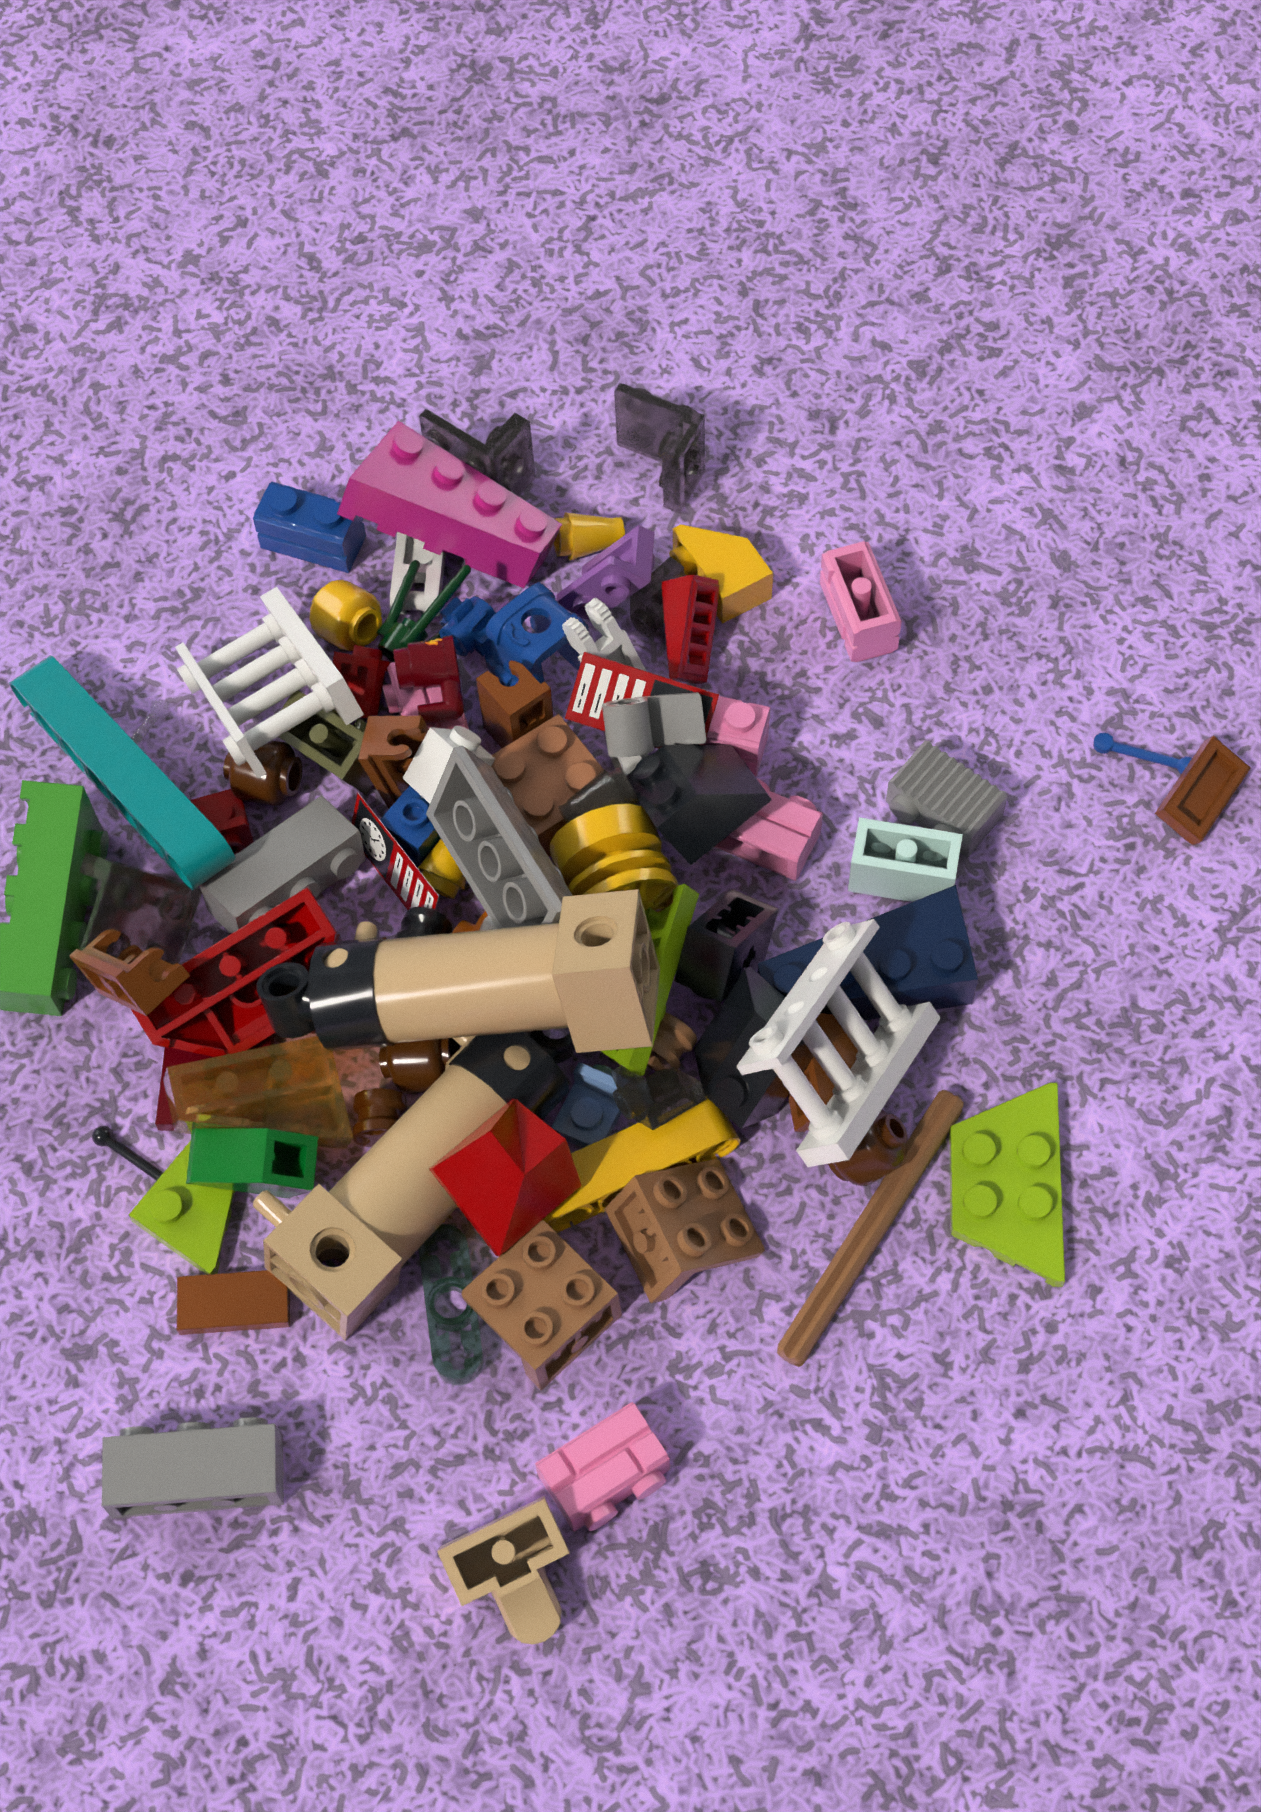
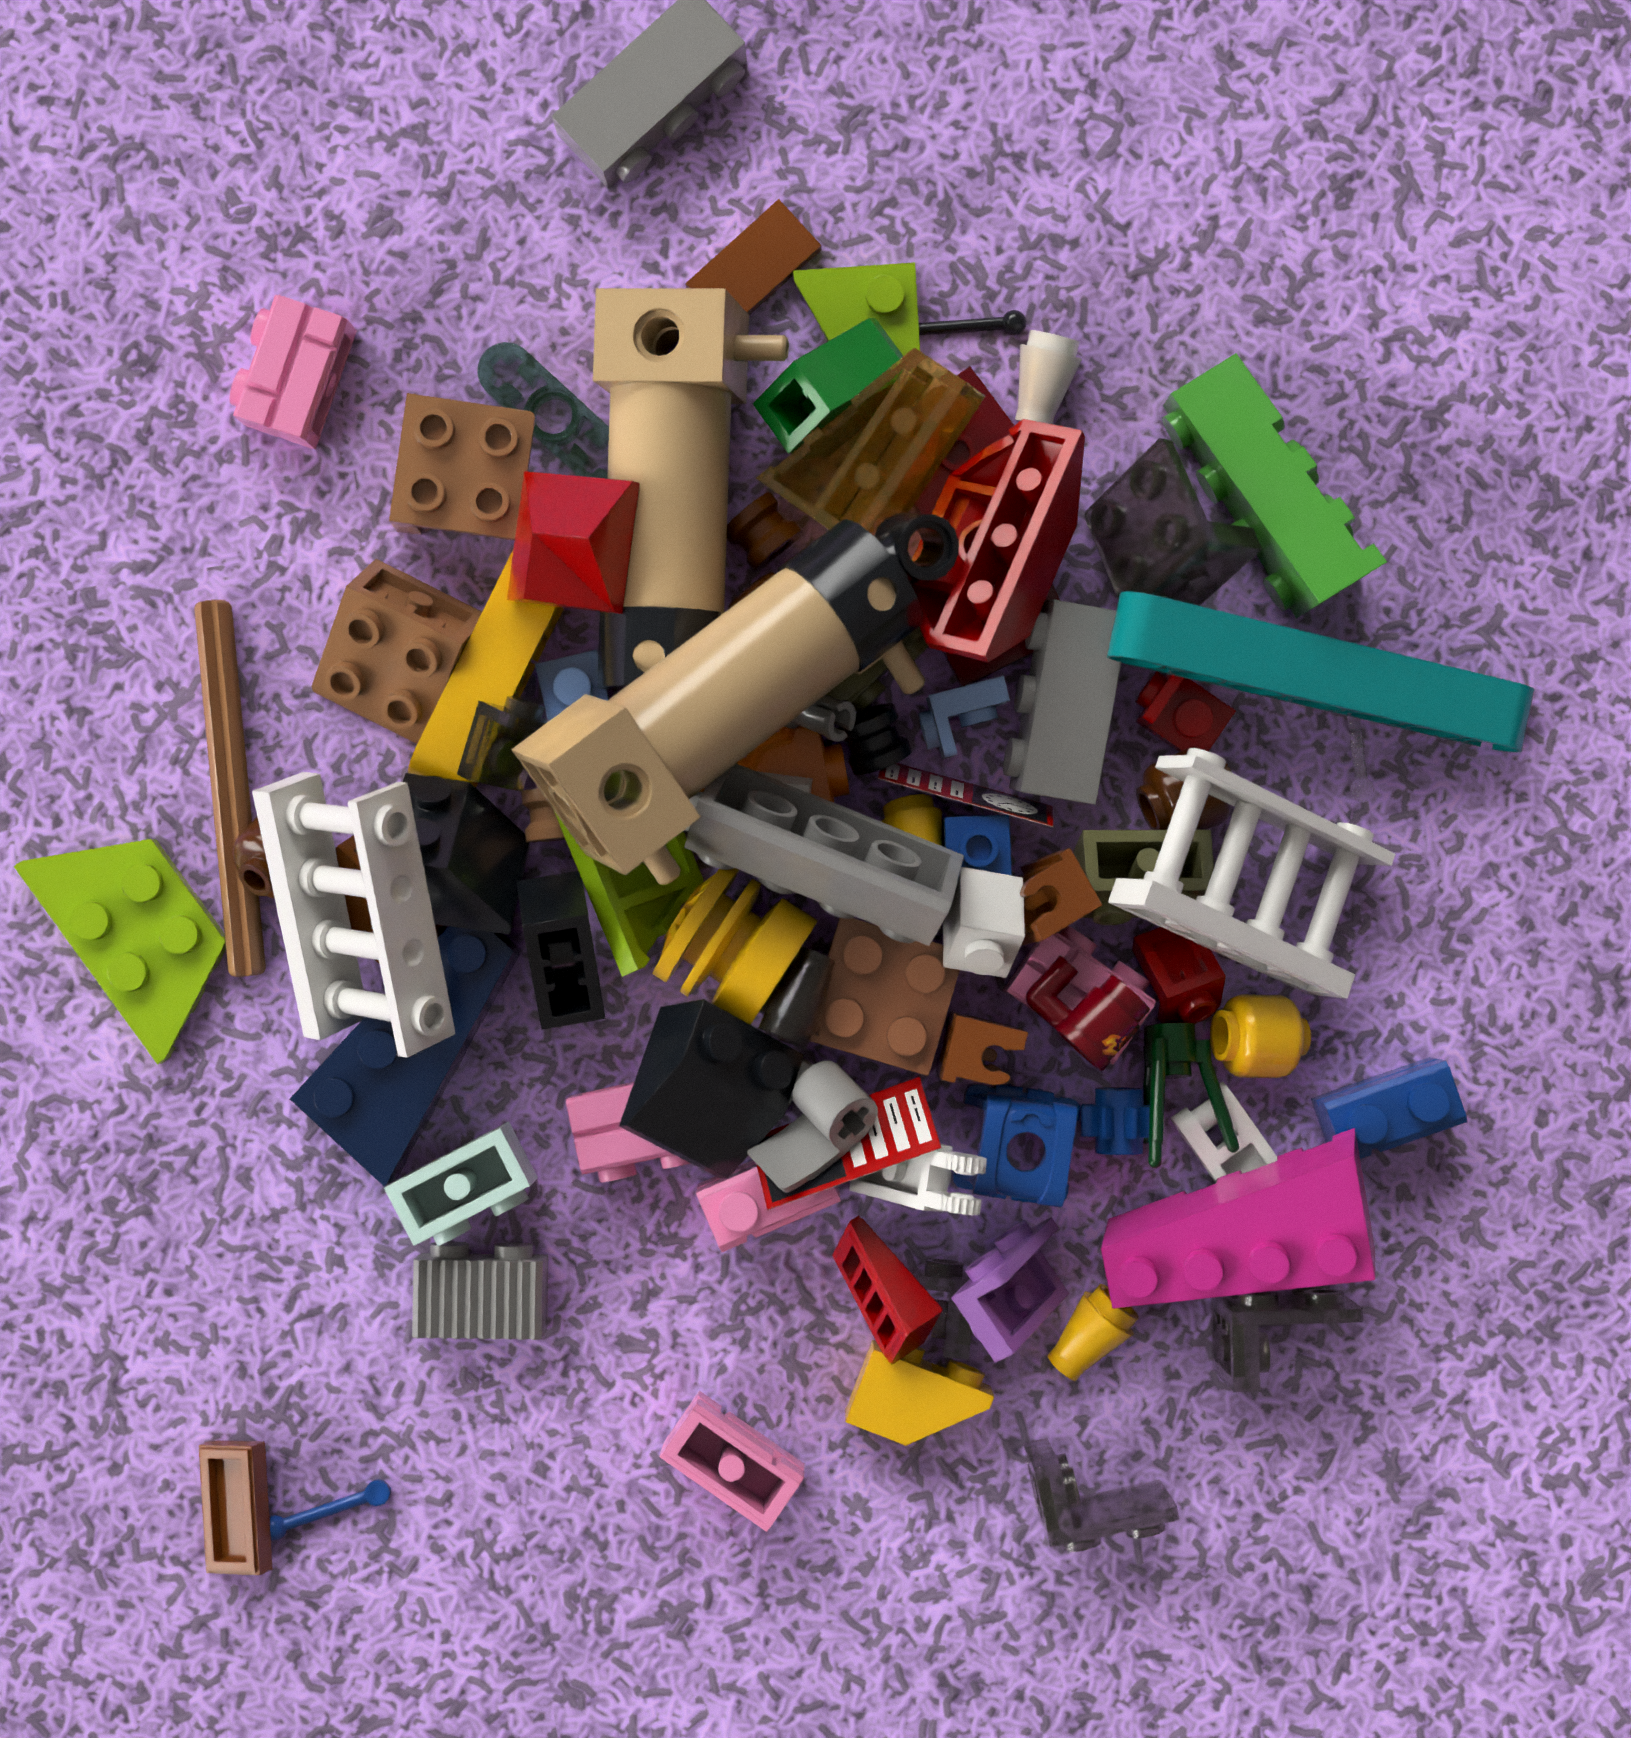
camera: 140 degrees right, 25 degrees up
(115, 1080) = (1045, 375): none -> white cone
(134, 977) = (1093, 452): dark orange hinge -> none
(347, 913) = (972, 704): none -> light blue bracket
(510, 1563) = (305, 222): tan brick -> none

